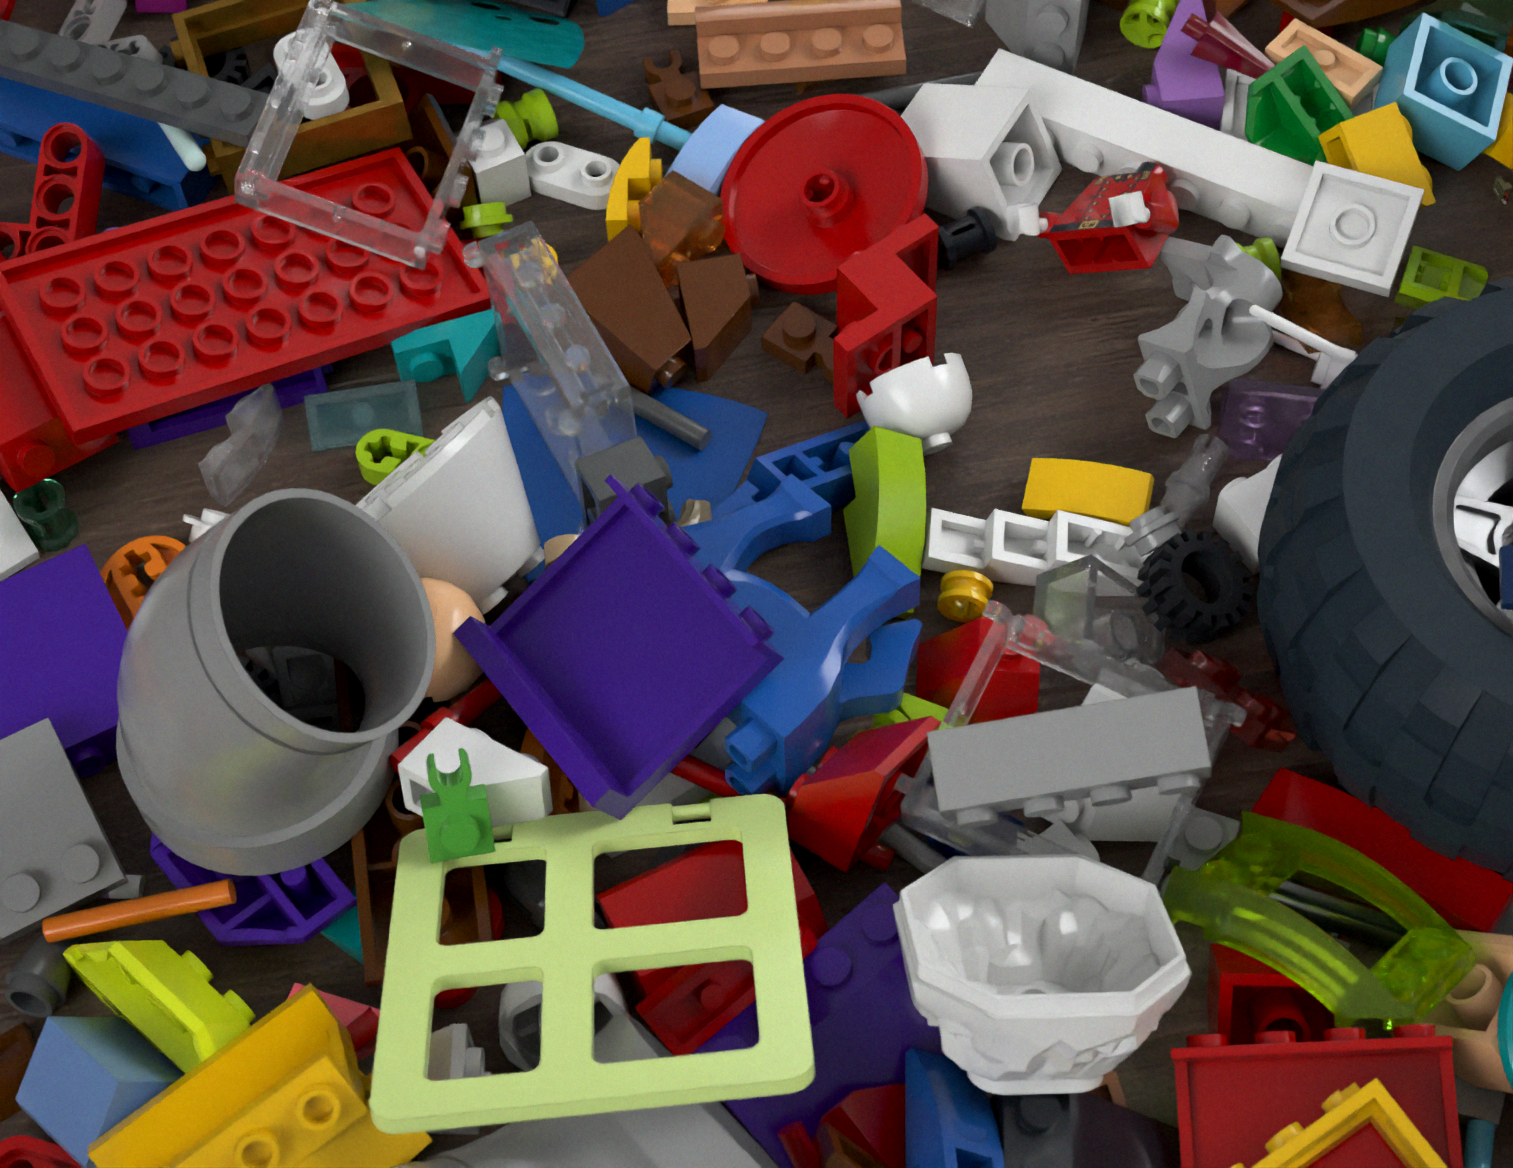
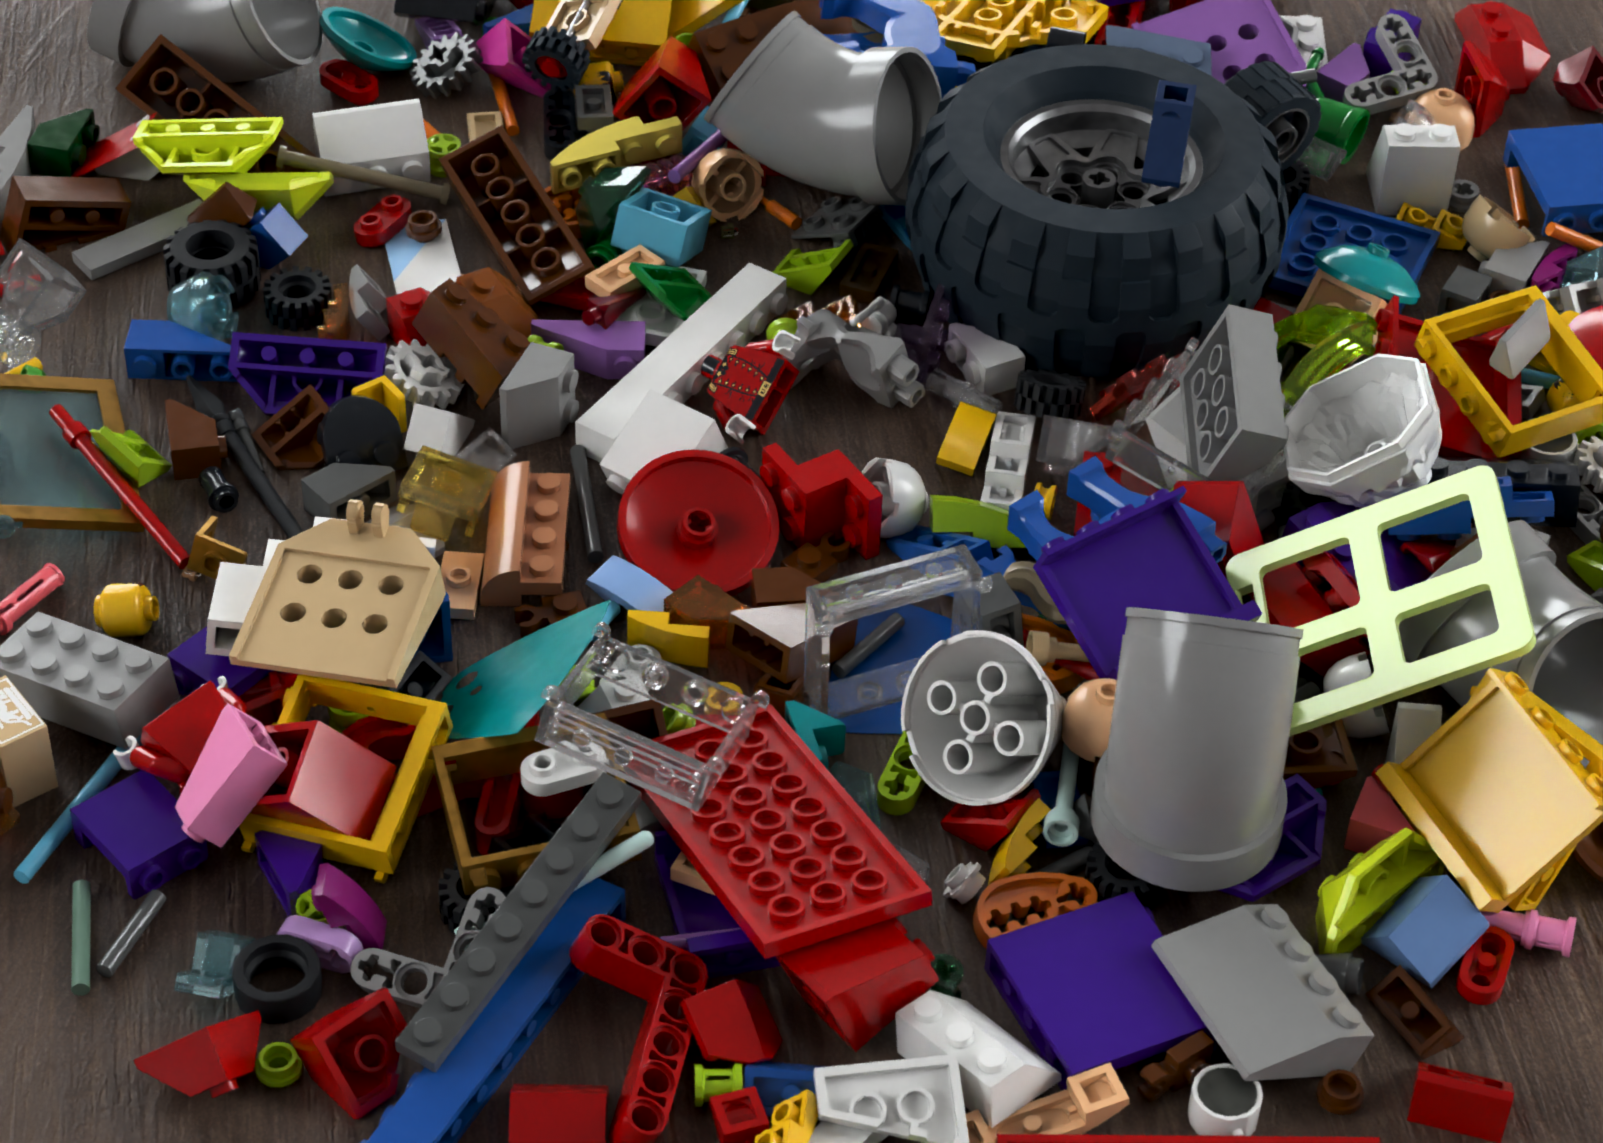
camera: 90 degrees left, 15 degrees down
(139, 910) = (1301, 893): orange bar -> none
(1152, 530) = (1011, 401): light grey plate -> none
(1352, 228) = (785, 275): white plate -> none
(1378, 146) = (714, 259): yellow slope -> none

